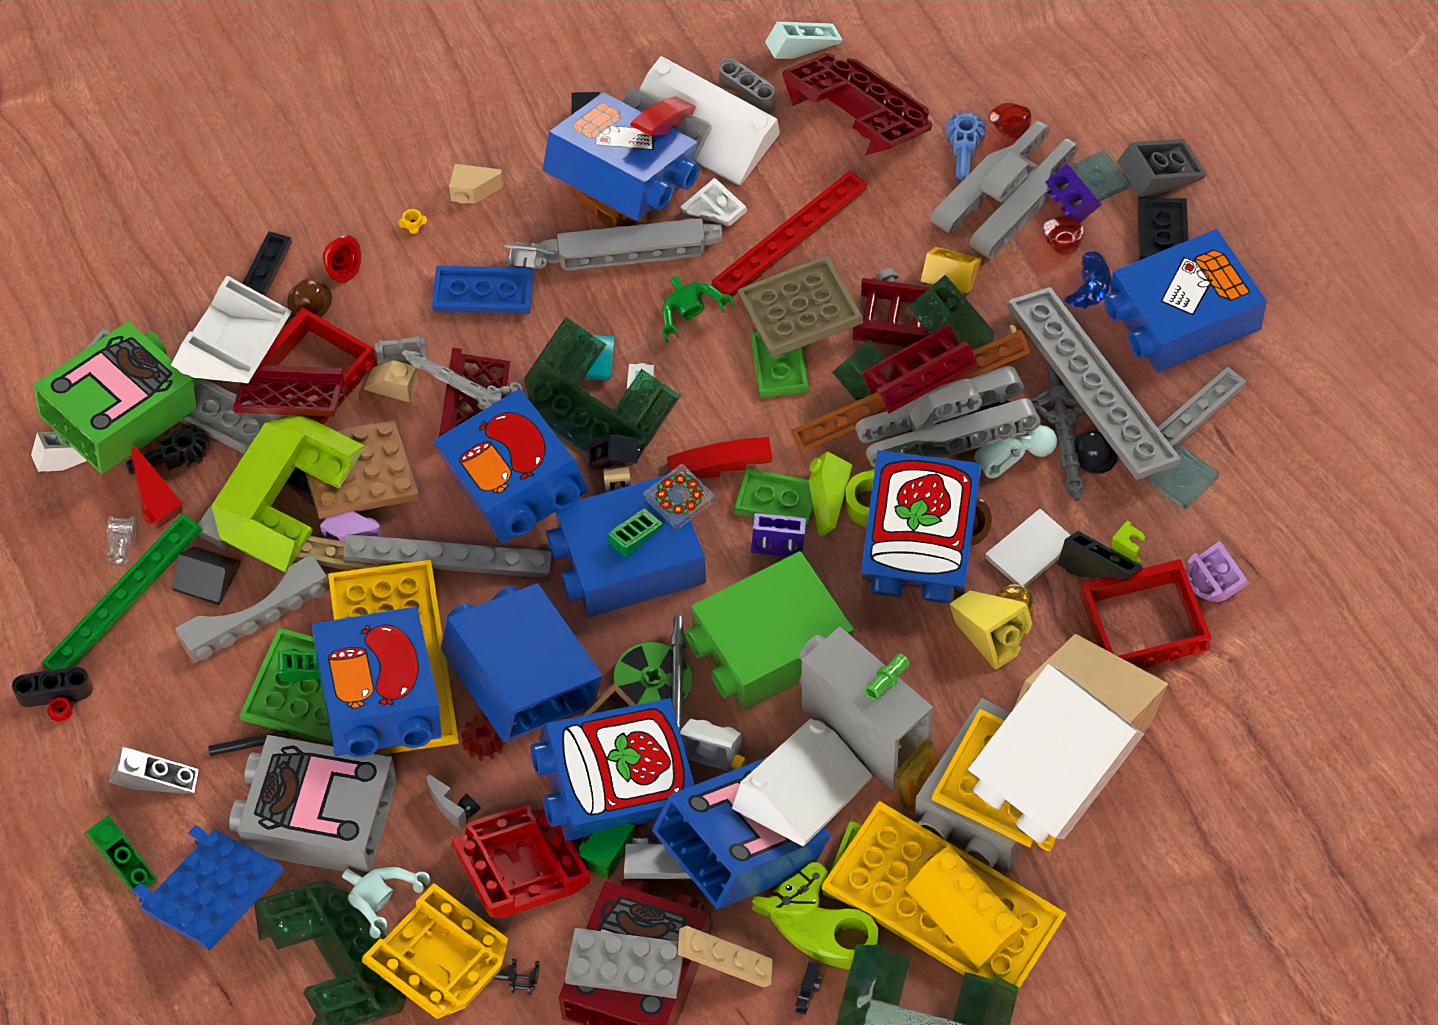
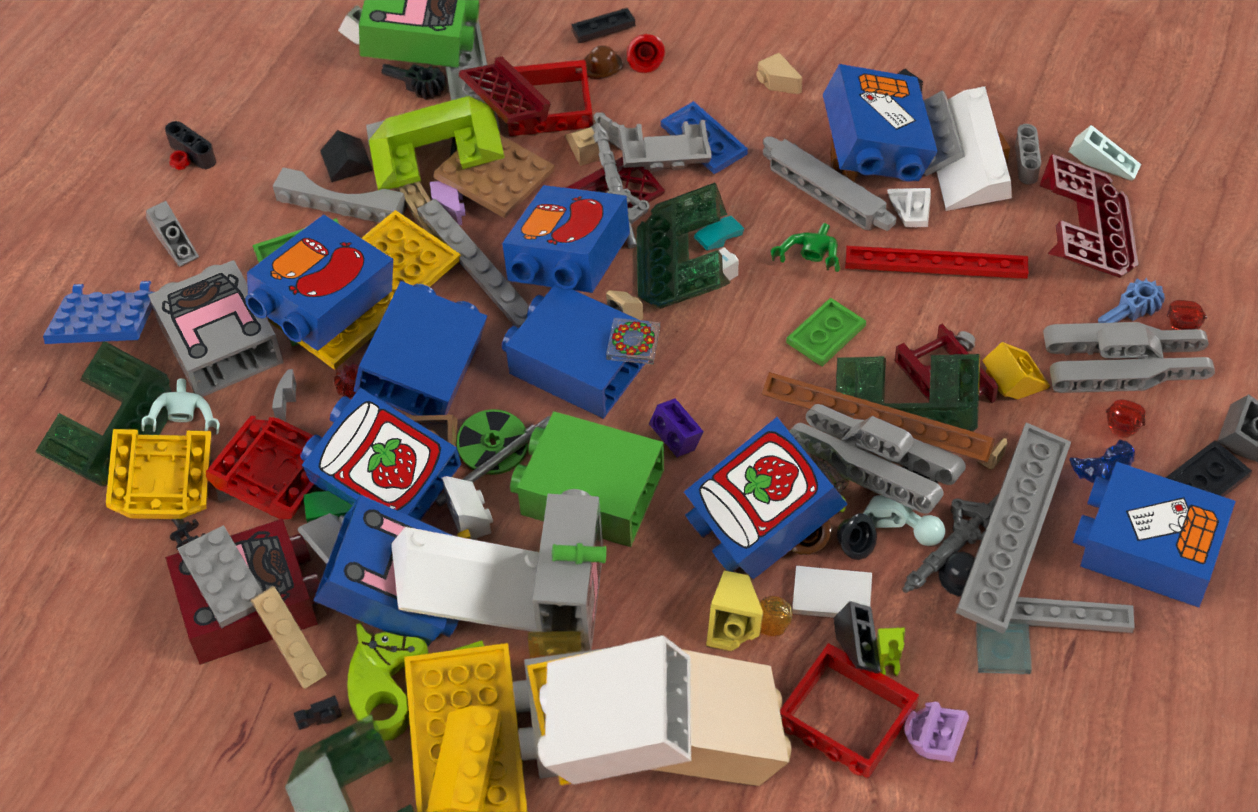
camera: 50 degrees right, 5 degrees down
(119, 853) = (98, 258): green slope -> none
(120, 536) = (330, 100): clear connector -> none
(123, 594) = (287, 128): green tile -> none
(156, 497) = (374, 88): red slope -> none
(231, 335) = (518, 38): white slope -> none
(243, 743) = (227, 258): black bar -> none
(409, 216) = (717, 67): yellow plate -> none
(468, 805) = (295, 411): black hinge -> none
(475, 335) = (665, 151): none -> light grey bracket
(524, 256) = (752, 137): light grey hinge -> none
(613, 451) = (646, 289): black slope -> none
(616, 540) = (563, 336): green slope -> none
(662, 115) = (927, 114): red slope -> none
(722, 457) = (709, 352): red slope -> none
(774, 495) = (713, 409): bright green tile -> none
(800, 306) = (878, 306): dark tan plate -> none
(827, 489) = (745, 428): lime slope -> none
(919, 368) = (887, 400): dark red fence -> none
(1000, 492) = (857, 536): none -> black hat
(1074, 192) = (1167, 397): dark purple brick -> none
(1101, 175) = (1203, 404): clear light blue tile -> none

